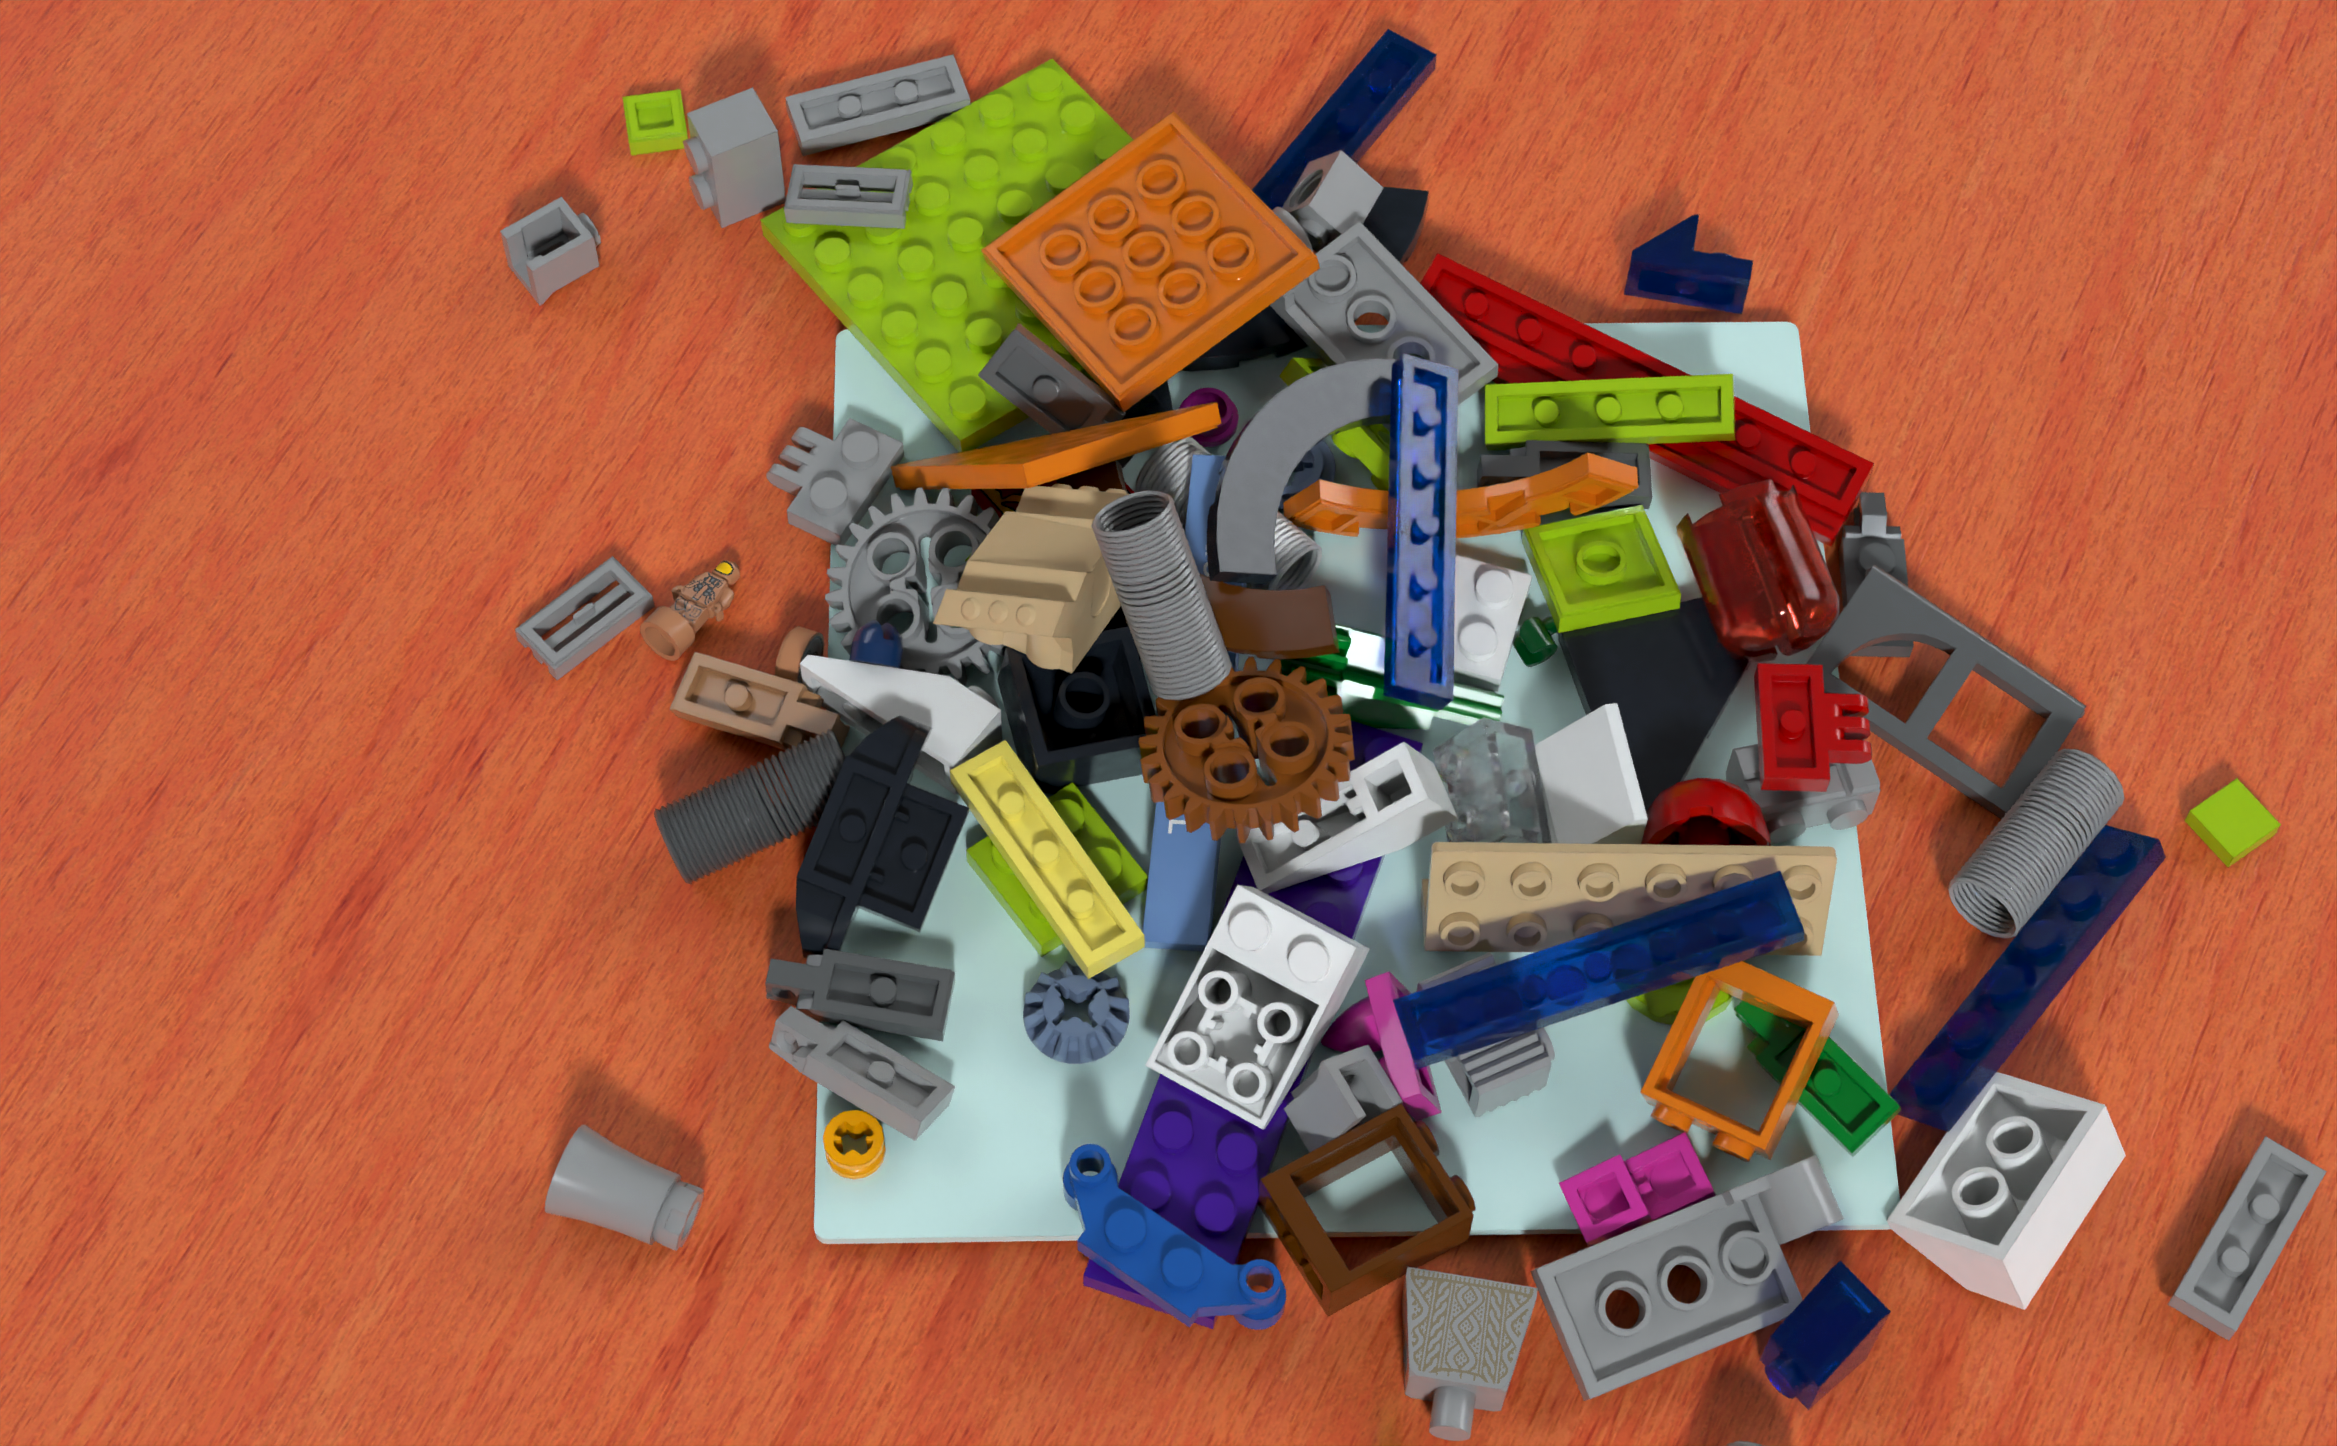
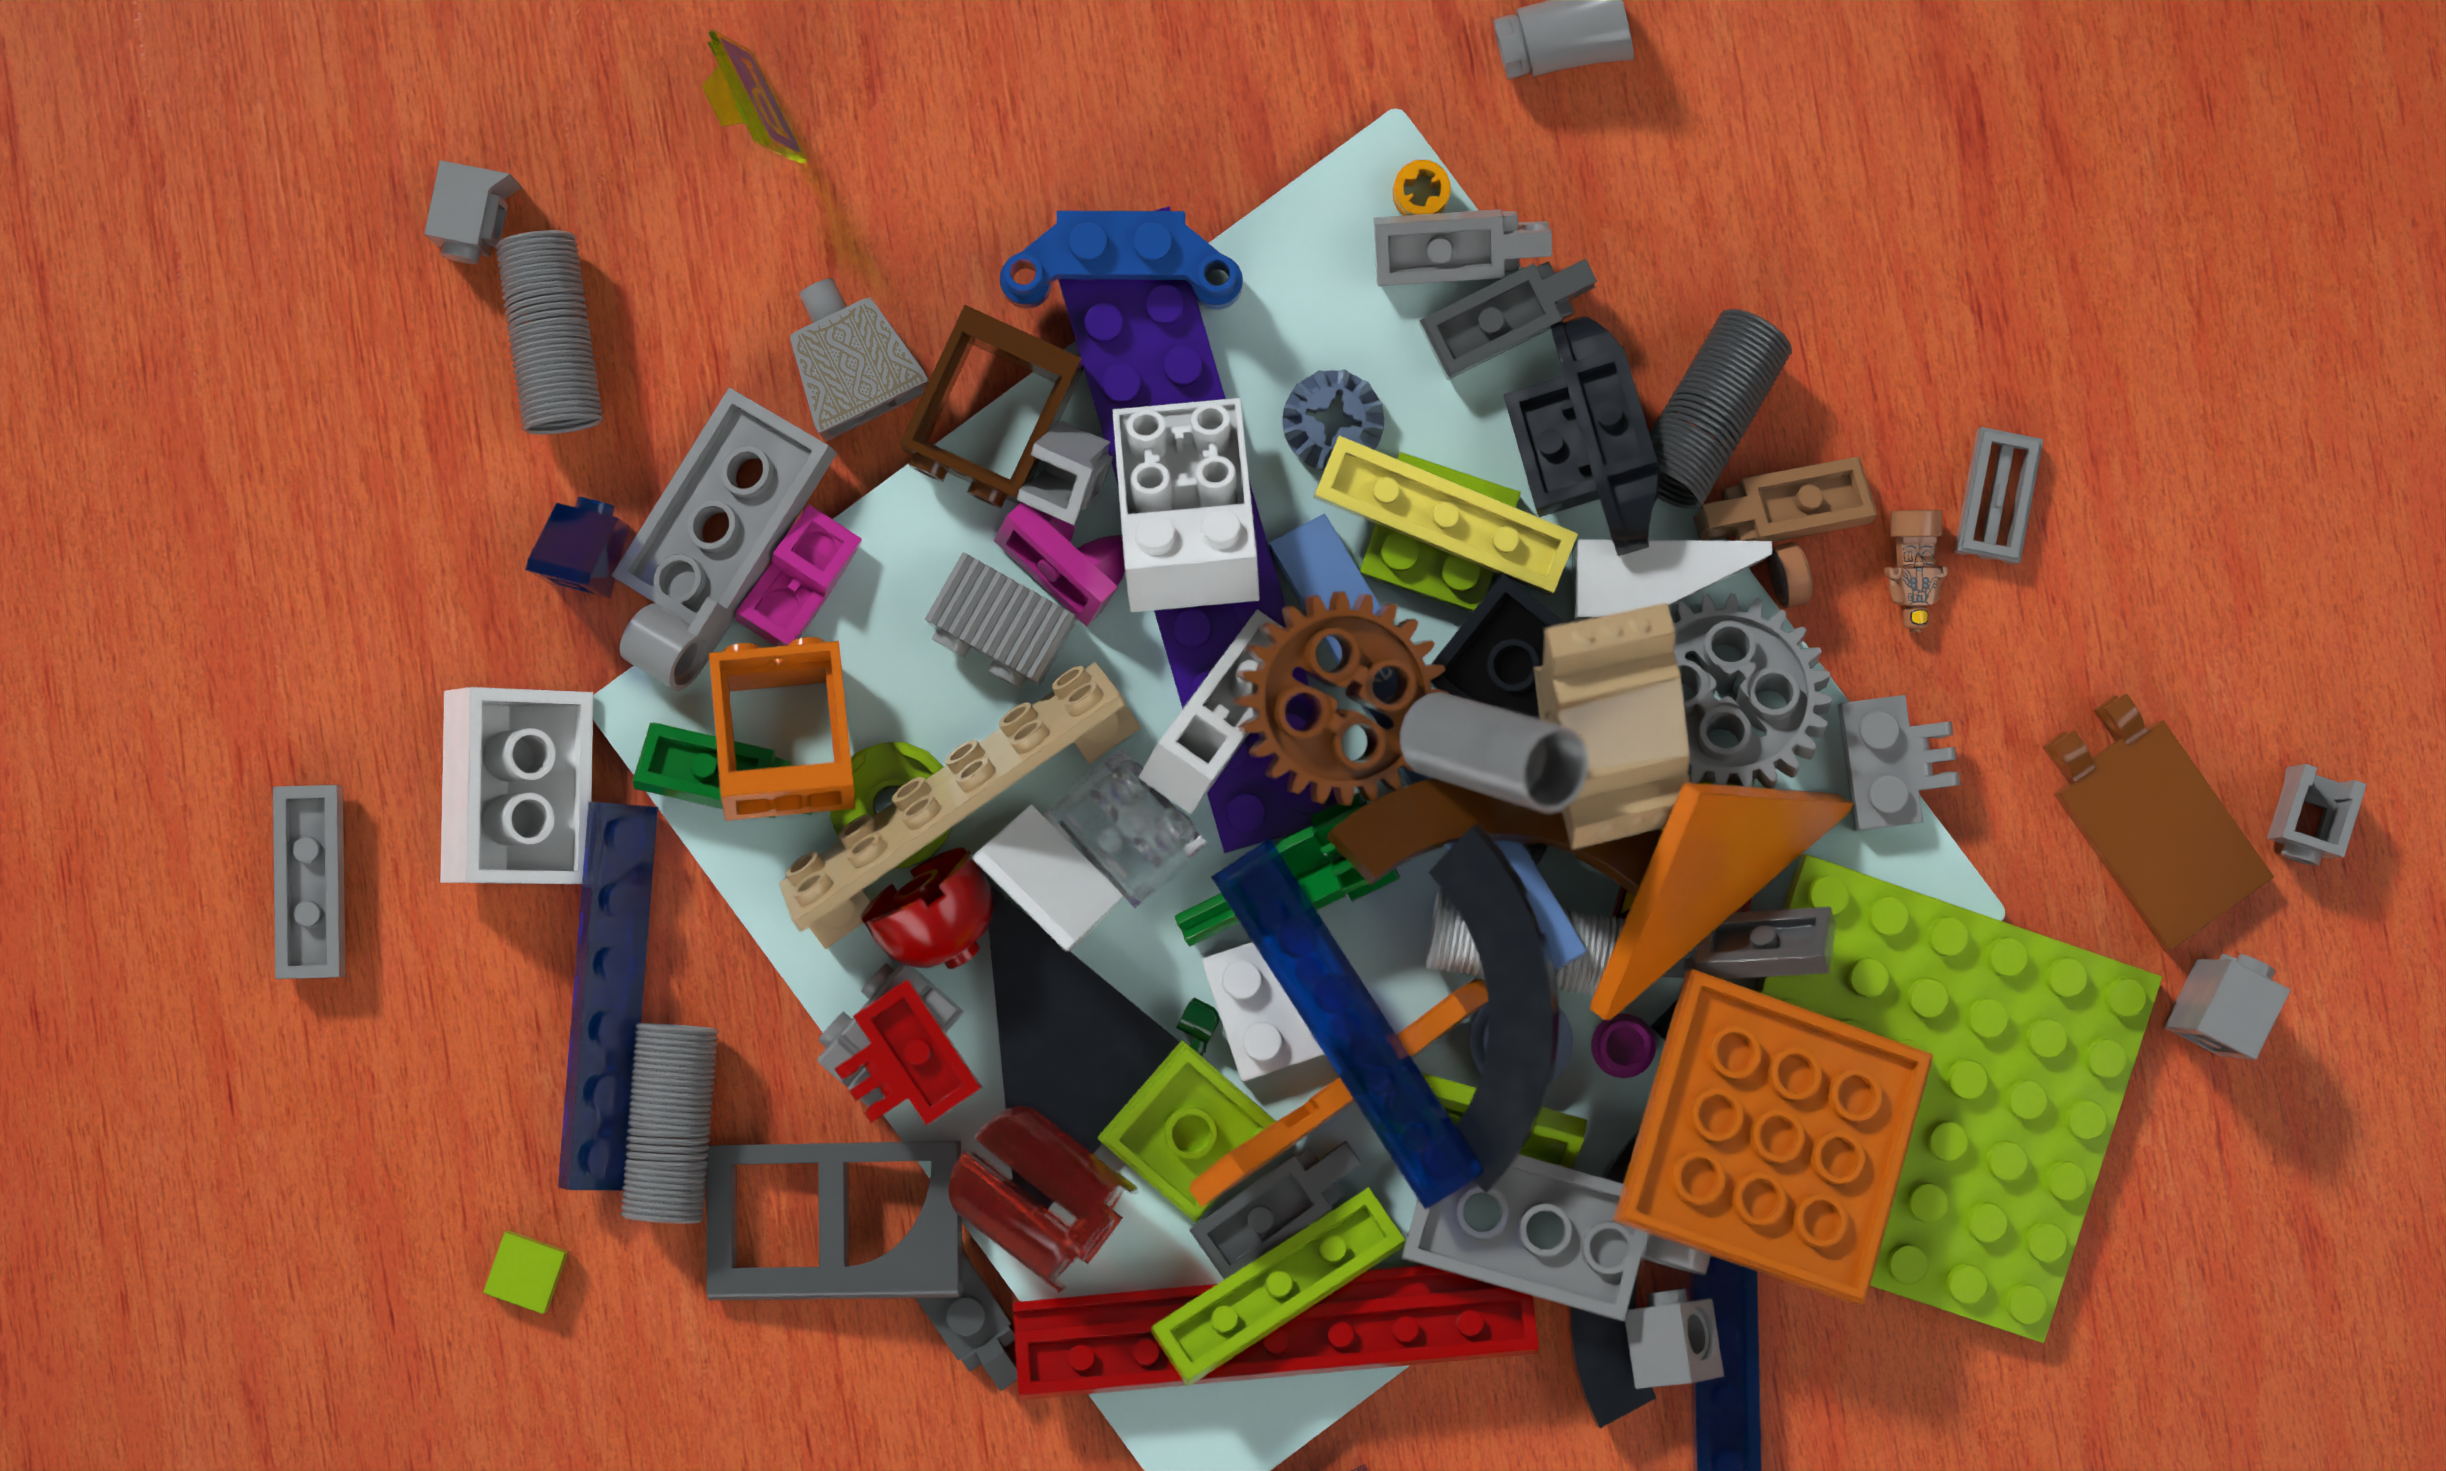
camera: 145 degrees right, 25 degrees up
(655, 122) = (2341, 1021): lime tile -> none
(672, 323) = (2156, 824): none -> dark orange tile
(847, 203) = (2051, 1068): light grey tile -> none
(876, 105) = (2158, 1177): light grey plate -> none
(877, 645) = (1719, 599): dark blue hinge -> none
(1598, 970) = (924, 698): clear blue plate -> none

